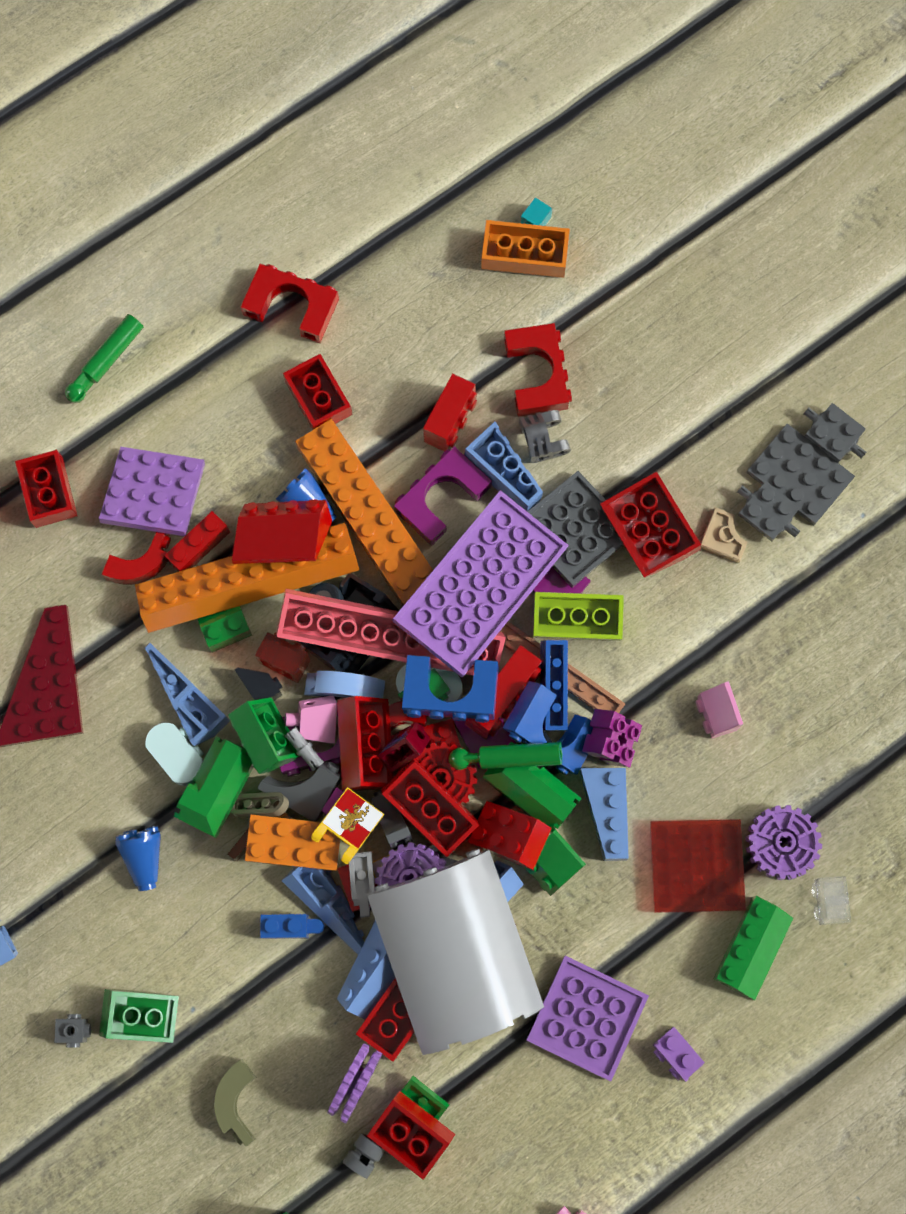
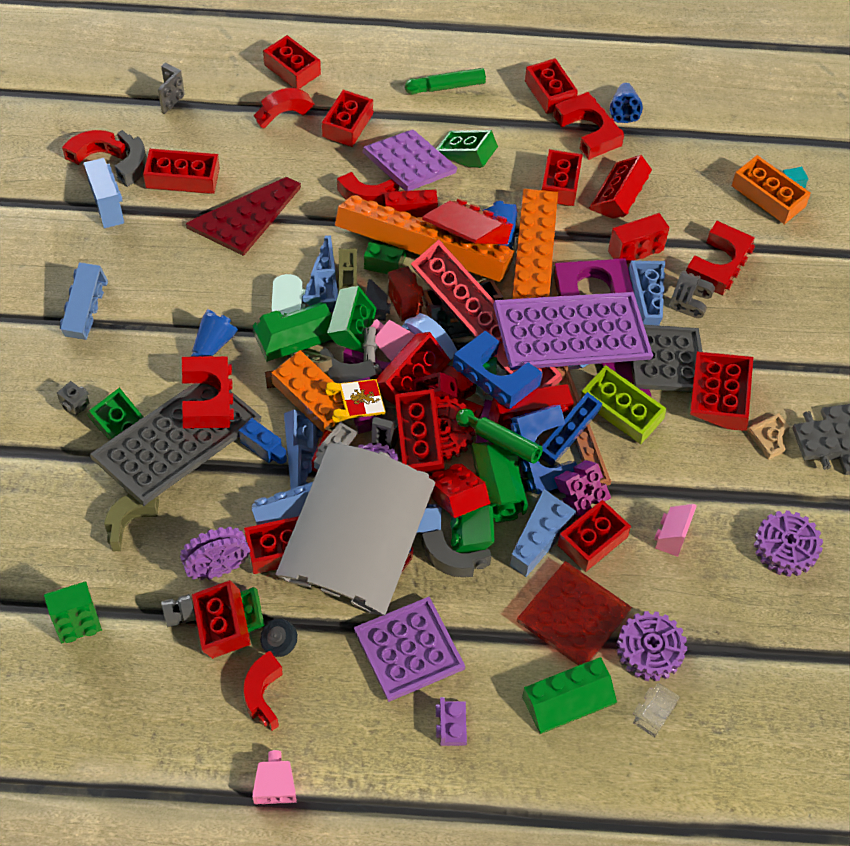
camera: 35 degrees right, 20 degrees down
(183, 893) = (212, 412): none -> red arch
(194, 427) = (468, 147): none -> green slope
(207, 992) = (158, 449): none -> dark grey plate
(212, 682) = (347, 267): none -> olive arch
(215, 283) = (549, 84): none -> red brick
(306, 246) = (626, 104): none -> blue cone
(381, 357) = (621, 187): none -> red slope
(472, 1105) = (279, 637): none -> black wheel
(487, 1158) = (260, 675): none -> red arch
(550, 906) = (450, 561): none -> dark grey arch
(657, 776) = (594, 535): none -> red brick
(813, 657) = (788, 543): none -> medium lavender piece

